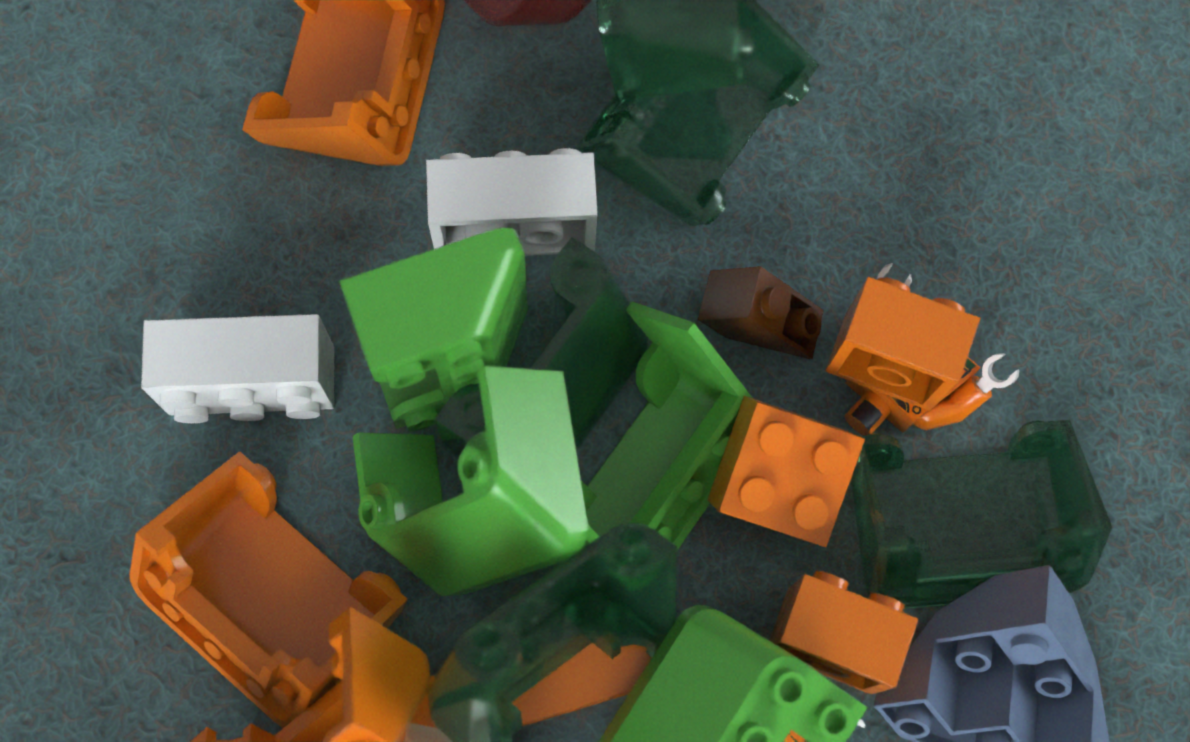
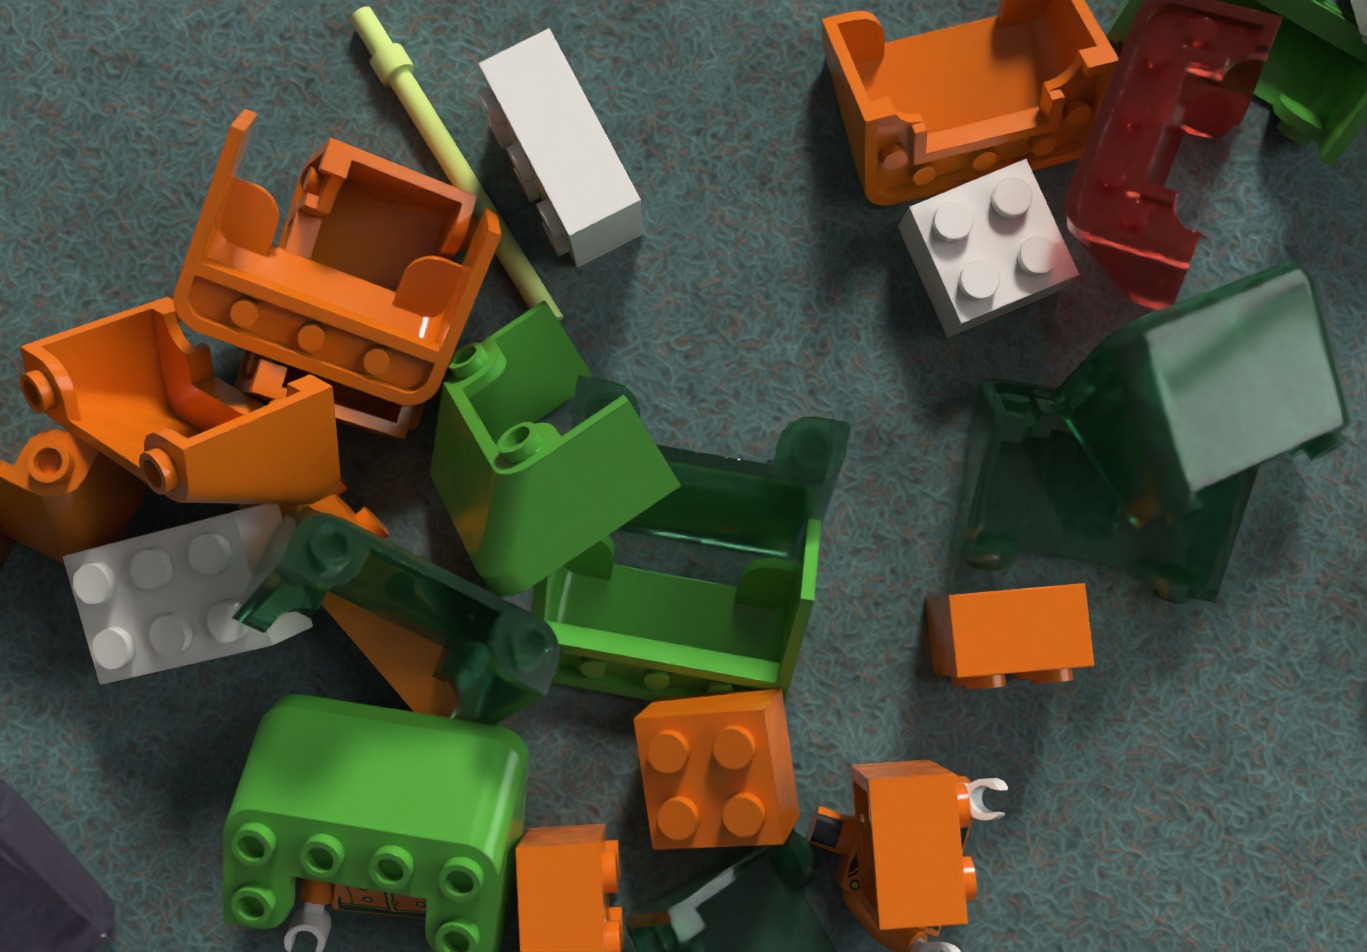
camera: 65 degrees right, 10 degrees up
(92, 476) = (396, 70): none -> yellowish green bar
(323, 569) = (313, 314): none -> orange windscreen
(439, 320) = (681, 328): bright green windscreen -> none
(479, 96) = (987, 248): none -> white brick
(534, 194) = (875, 338): white brick -> none
(760, 311) = (890, 664): reddish brown slope -> none
(779, 209) = (1016, 631): none -> orange brick

